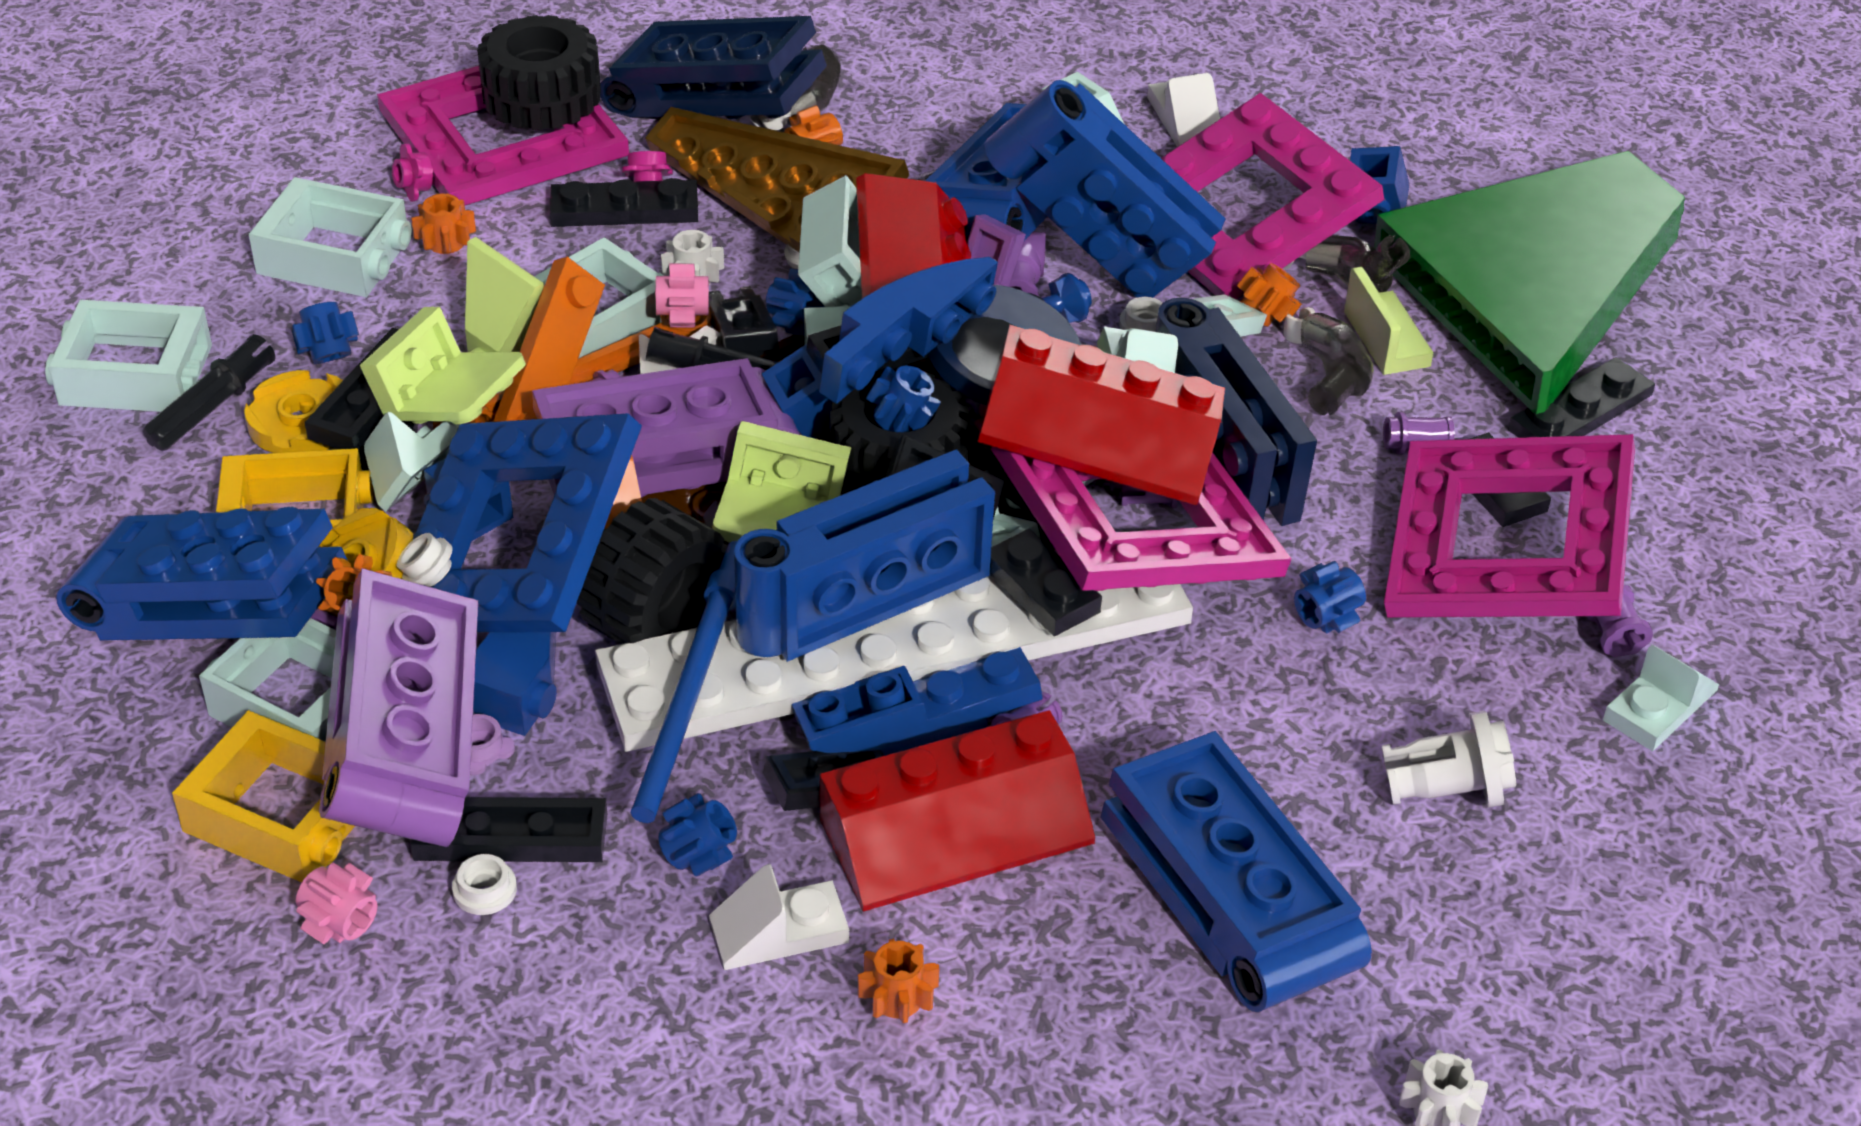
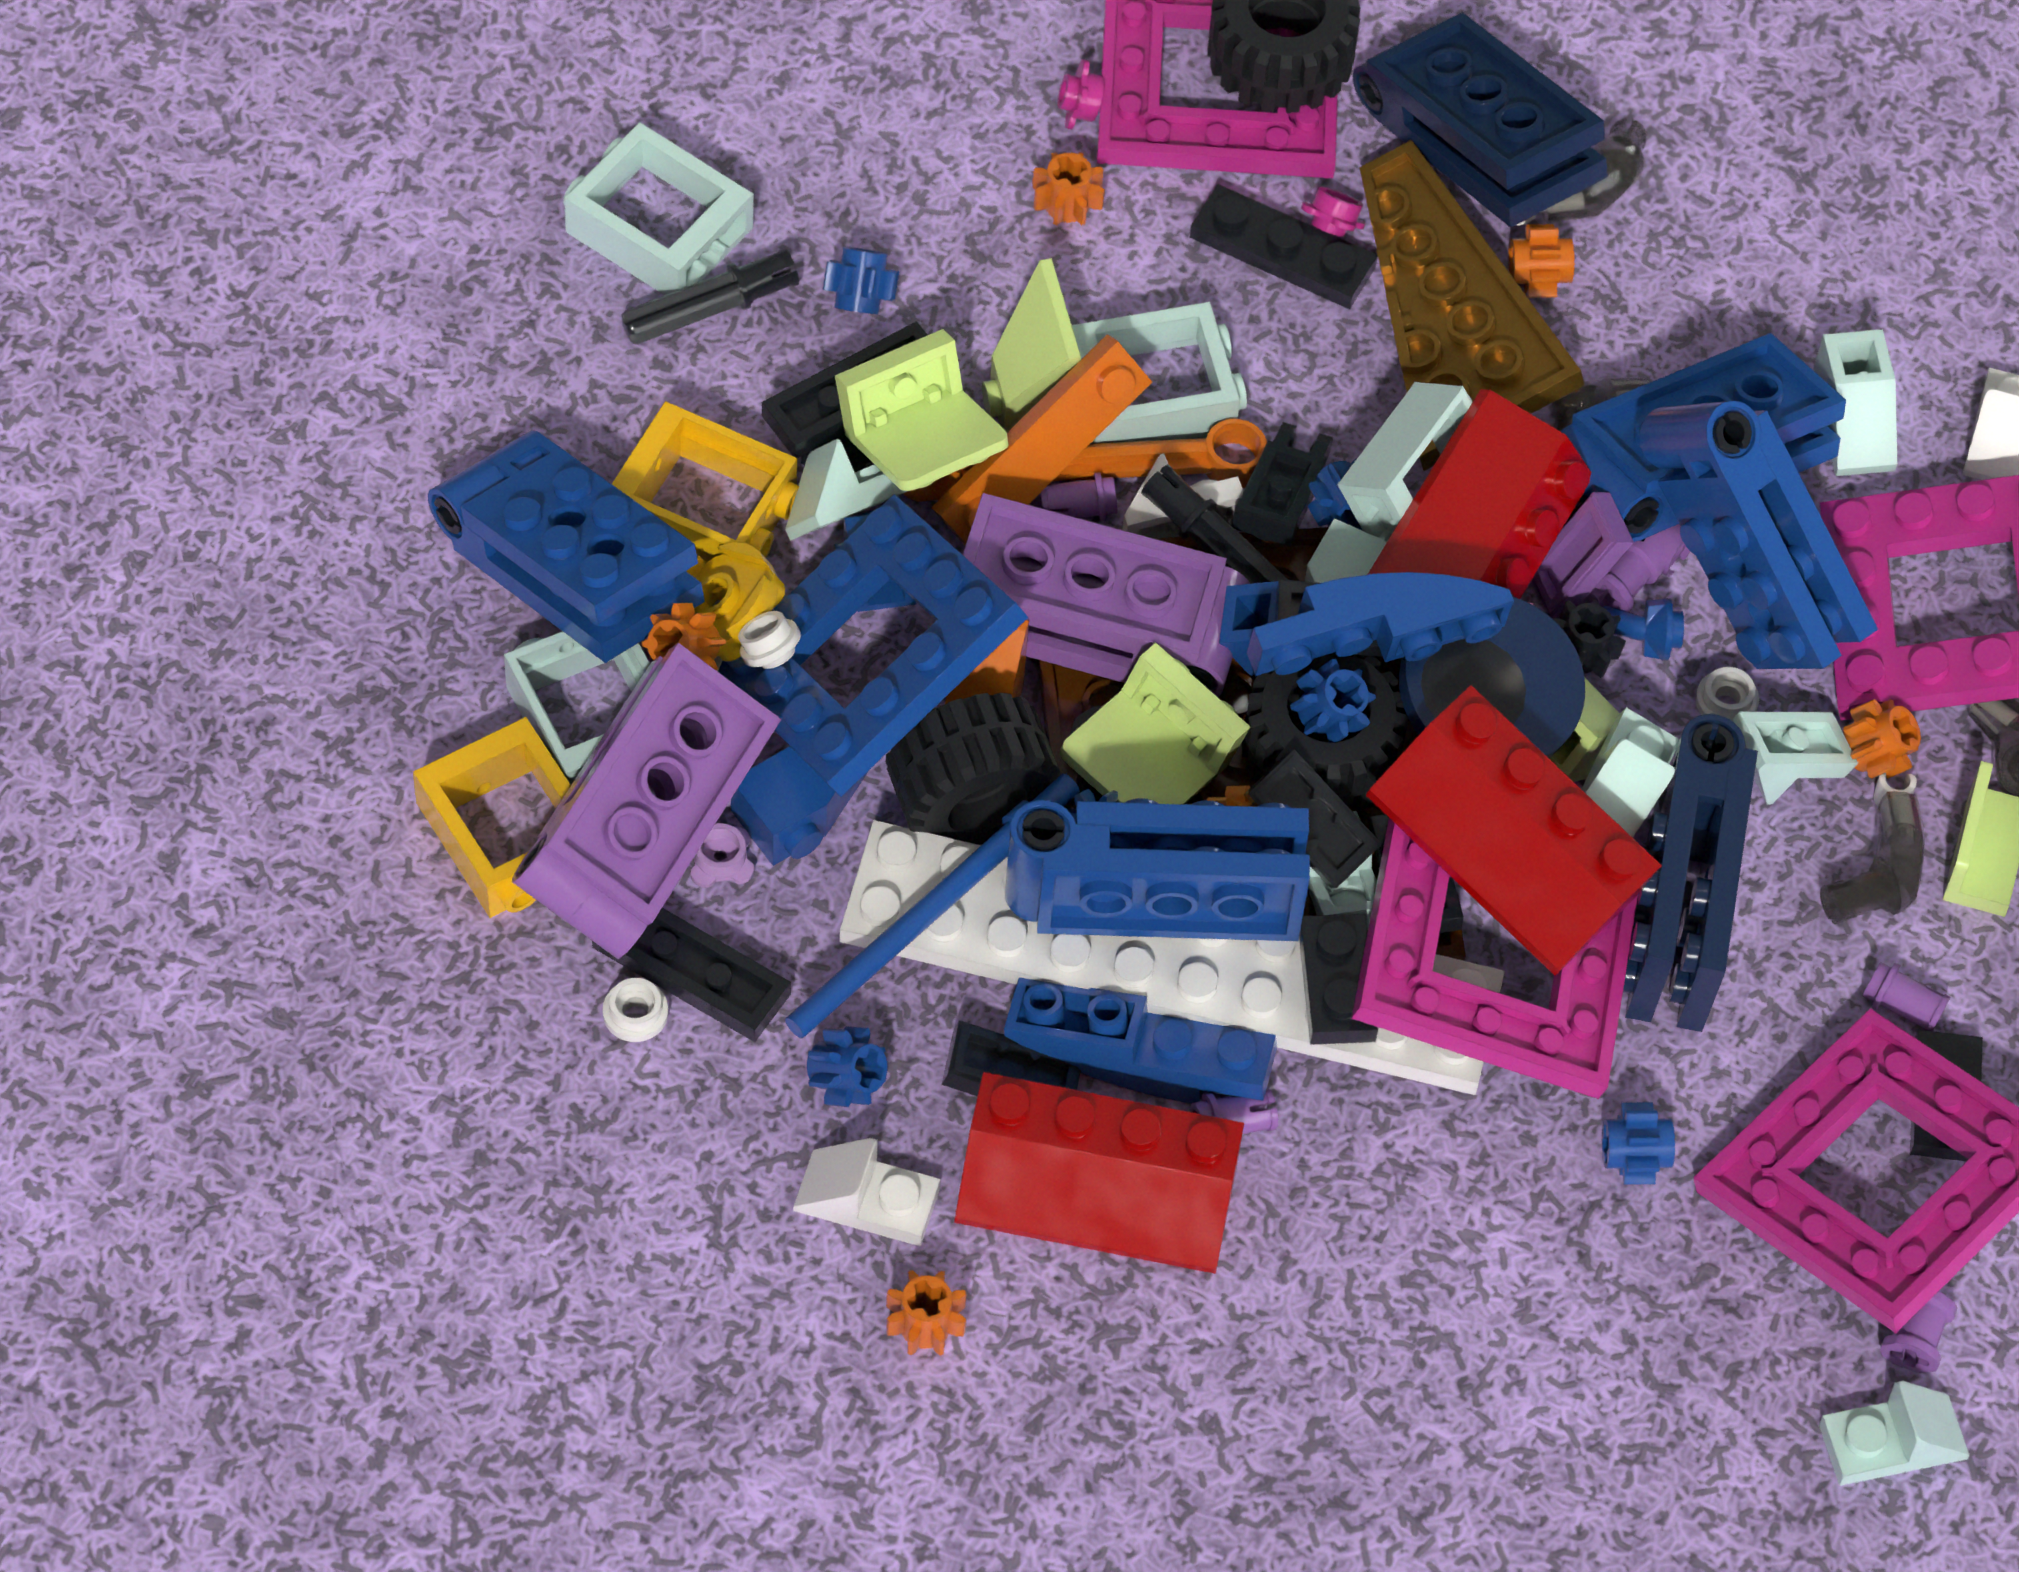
camera: 30 degrees right, 15 degrees up
(275, 399) = (758, 349): yellow plate -> none
(307, 204) = (913, 105): light aqua window -> none
(336, 903) = (494, 960): bright pink gear -> none
(682, 295) = (1232, 428): bright pink gear -> none
(697, 249) = (1294, 371): white gear -> none
(1235, 872) = (1296, 1438): blue hinge -> none
(1453, 763) = (1622, 1397): white piece -> none

